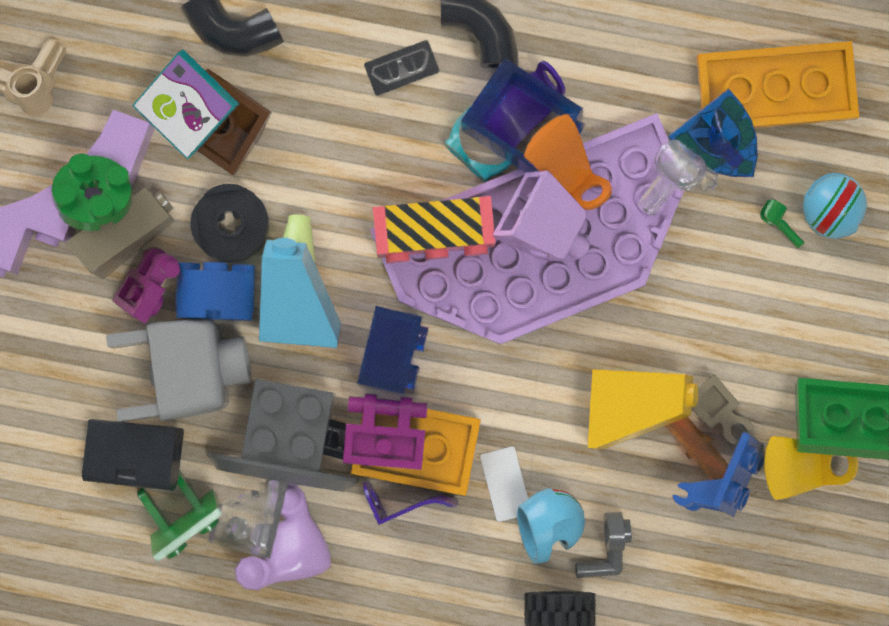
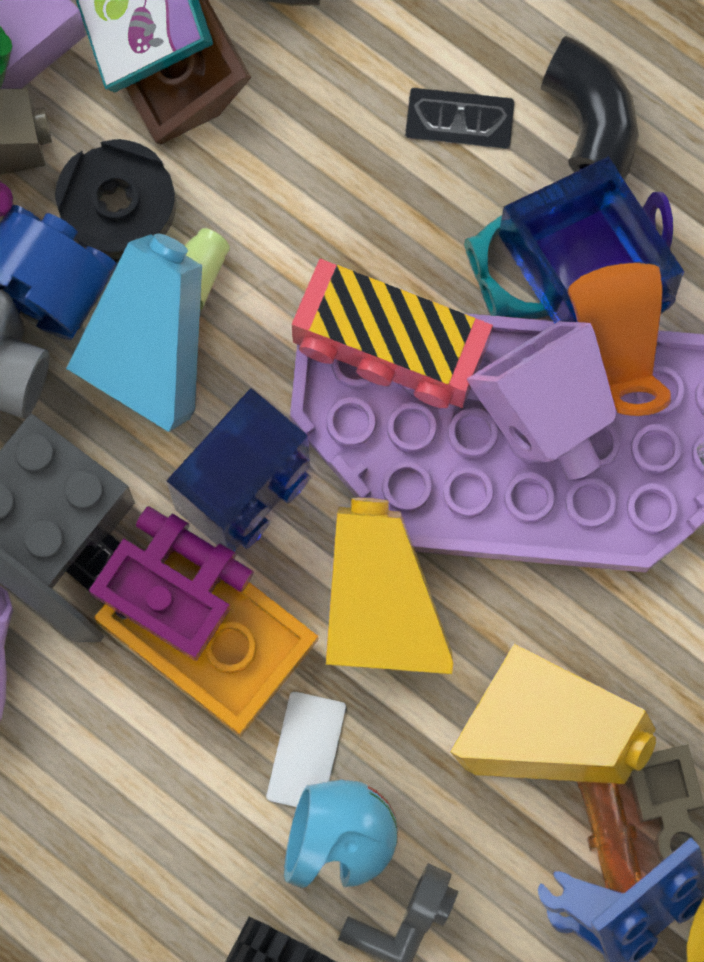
camera: 25 degrees right, 10 degrees down
(380, 514) = (104, 697): dark purple piece -> none
(506, 380) = (381, 597): none -> yellow slope

